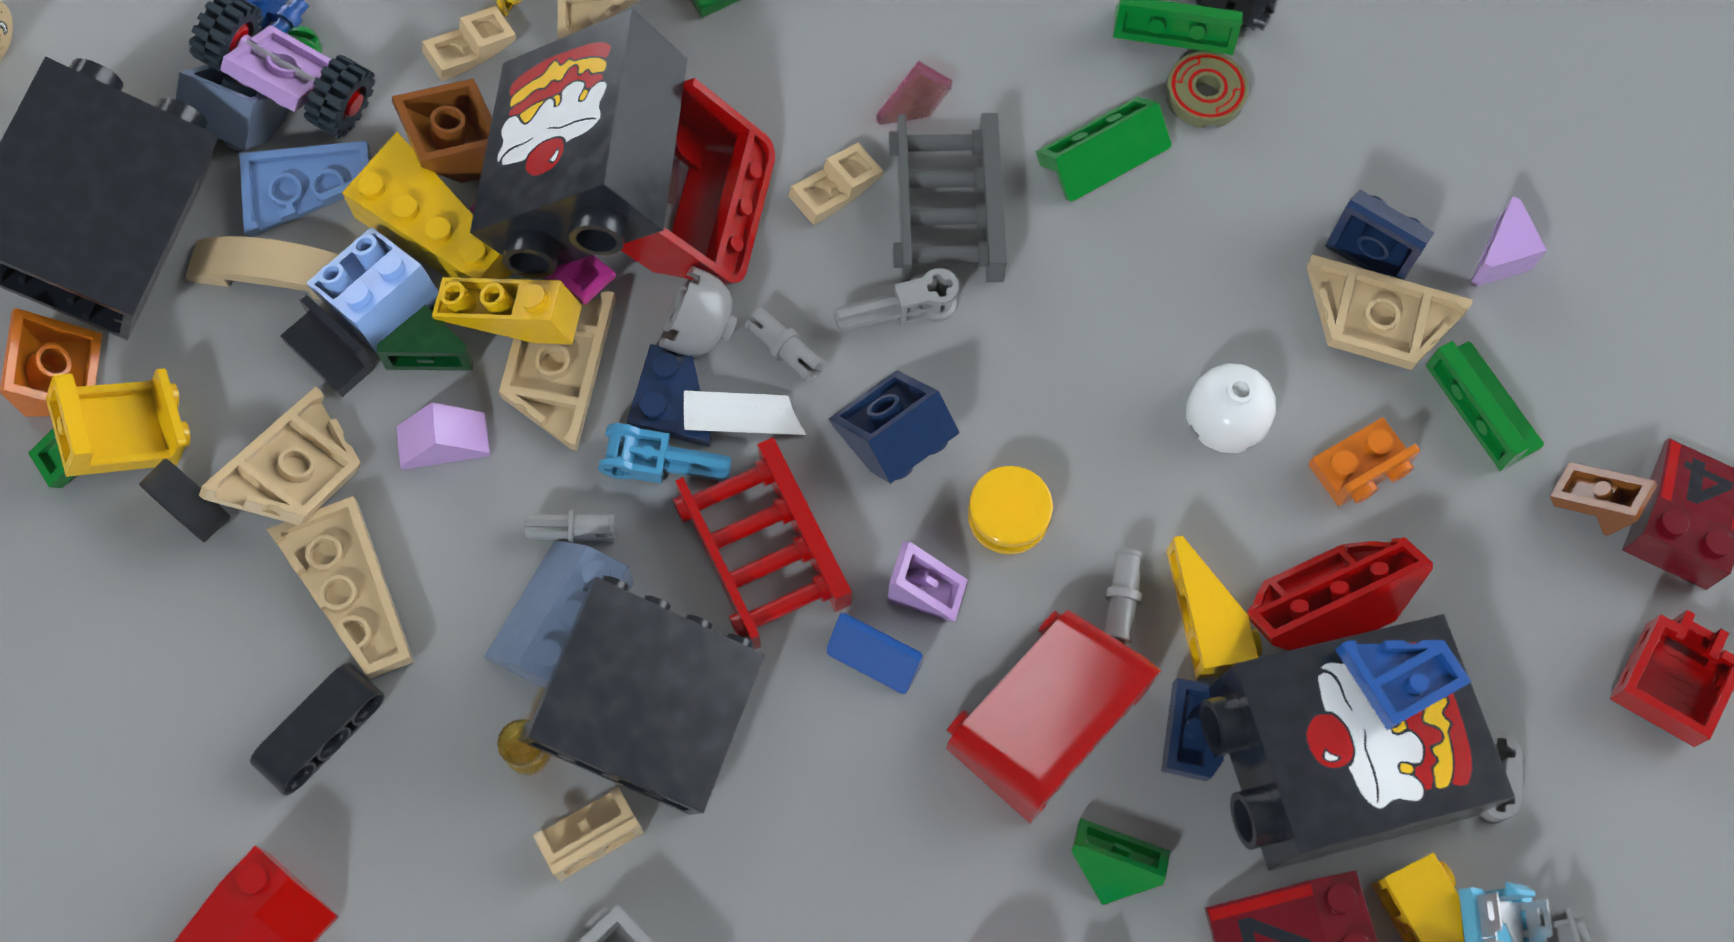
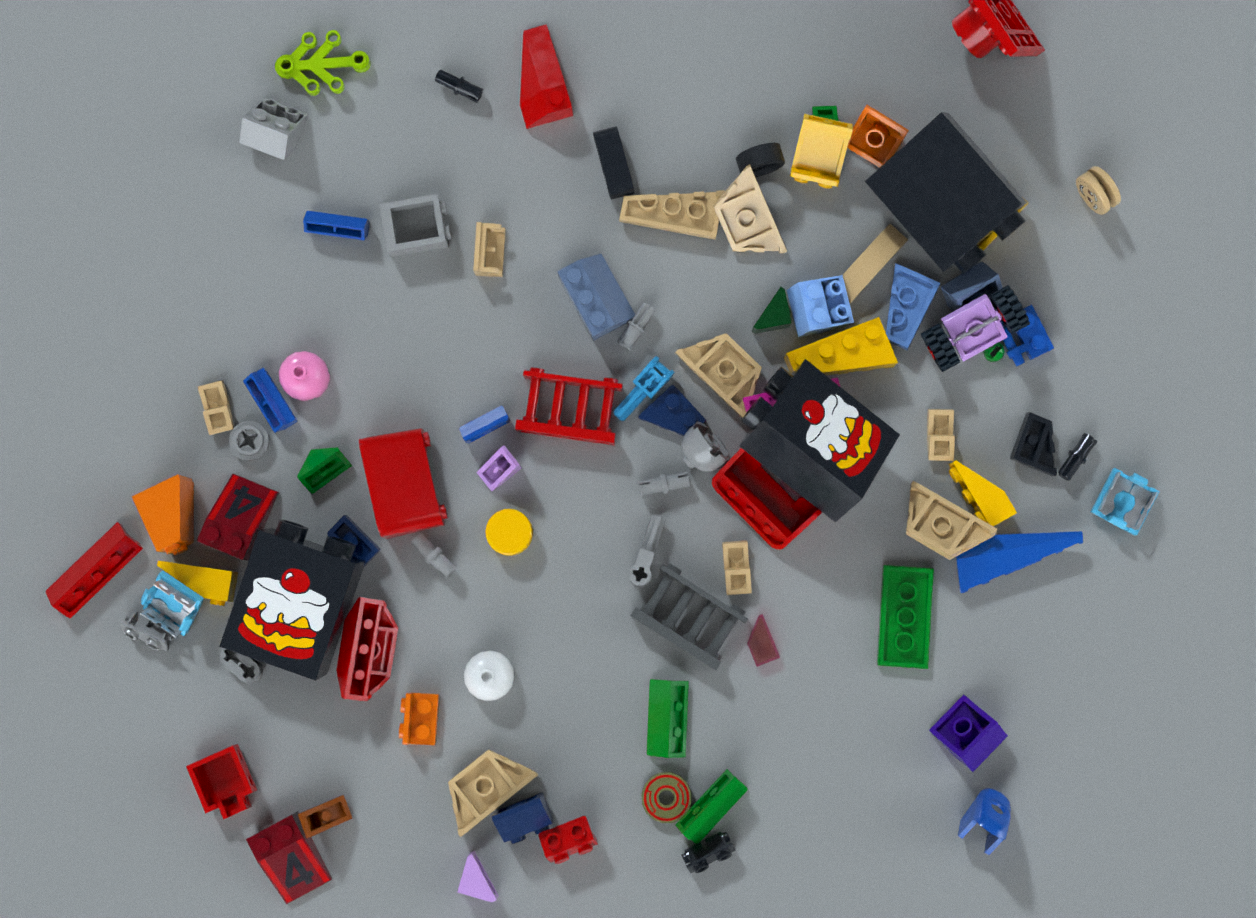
camera: 130 degrees right, 15 degrees up
(327, 348) = (804, 268): black panel -> none
(442, 436) = (721, 295): lavender slope -> none
(447, 128) = (884, 388): dark orange slope -> none
(510, 307) = (762, 359): yellow slope -> none
(510, 747) = (544, 240): clear yellow wheel -> none
(645, 696) = (526, 306): black panel -> none
(740, 413) = (642, 440): white sticker -> none
(896, 425) = (586, 506): dark blue slope -> none
(1212, 619) = (389, 585): yellow slope -> none
(1362, 161) = (567, 839): none -> red bracket
(1403, 676) = (298, 634): blue wing -> none
(1484, 404) = (408, 803): green panel -> none

